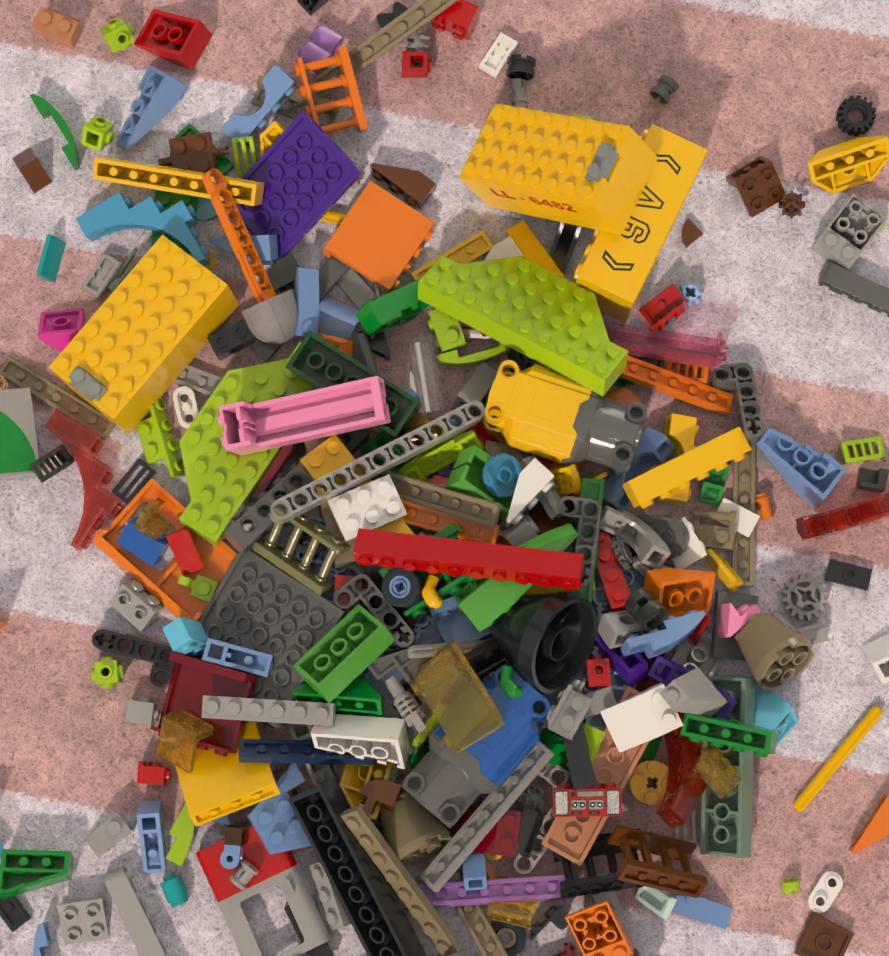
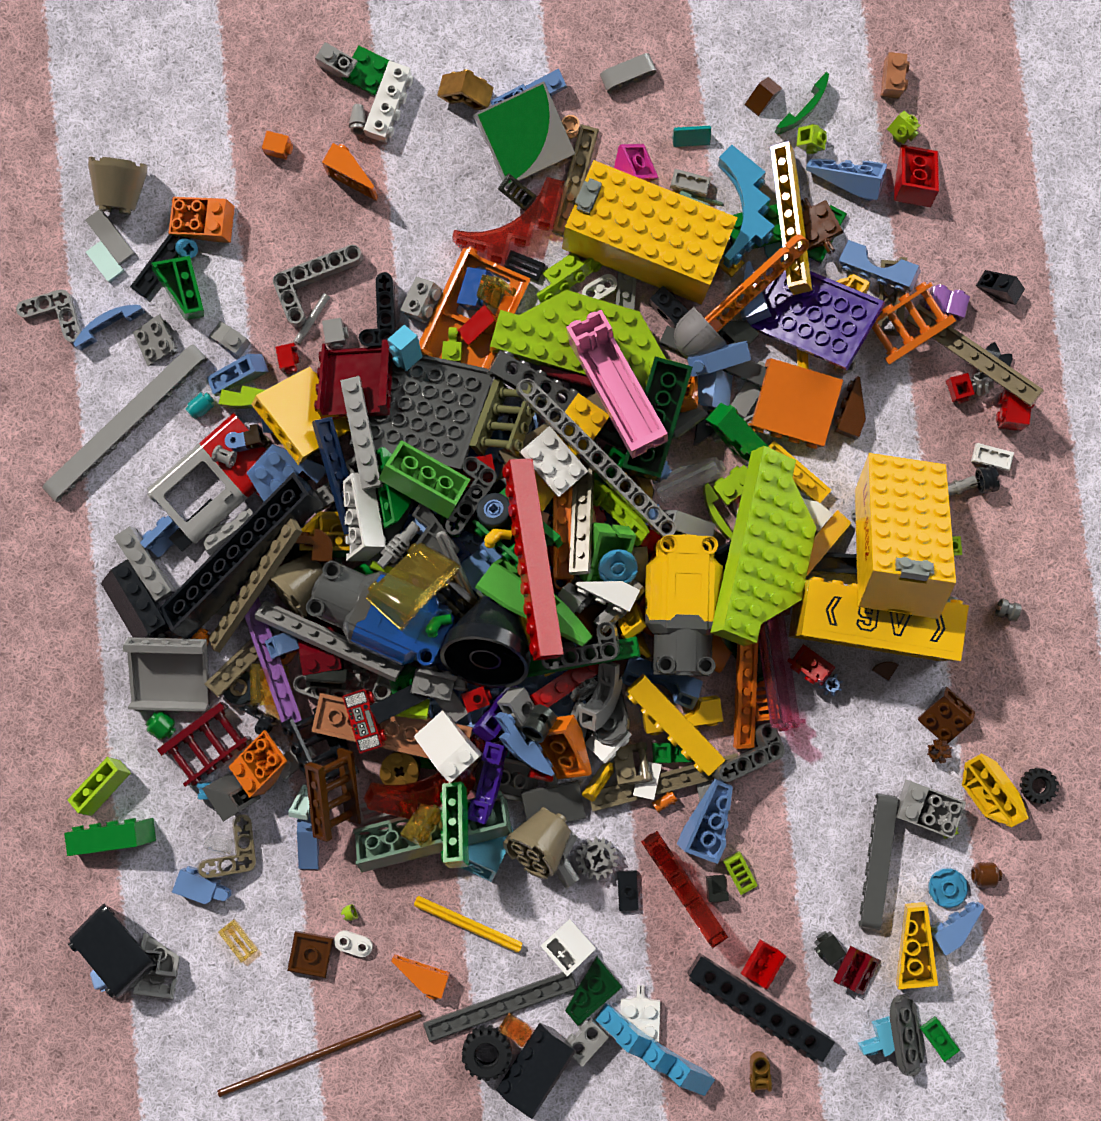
camera: 70 degrees right, 5 degrees up
(69, 720) = (308, 267): none -> light grey beam
(114, 676) = (363, 299): lime brick -> none
(115, 733) = (311, 319): none -> light grey bar
(180, 736) = (322, 368): clear yellow bracket -> none
(237, 657) = (399, 393): medium blue slope -> none
(244, 152) = (844, 261): lime tile -> none
(693, 694) = (477, 784): light grey slope -> none
(733, 620) = (555, 801): bright pink slope -> none

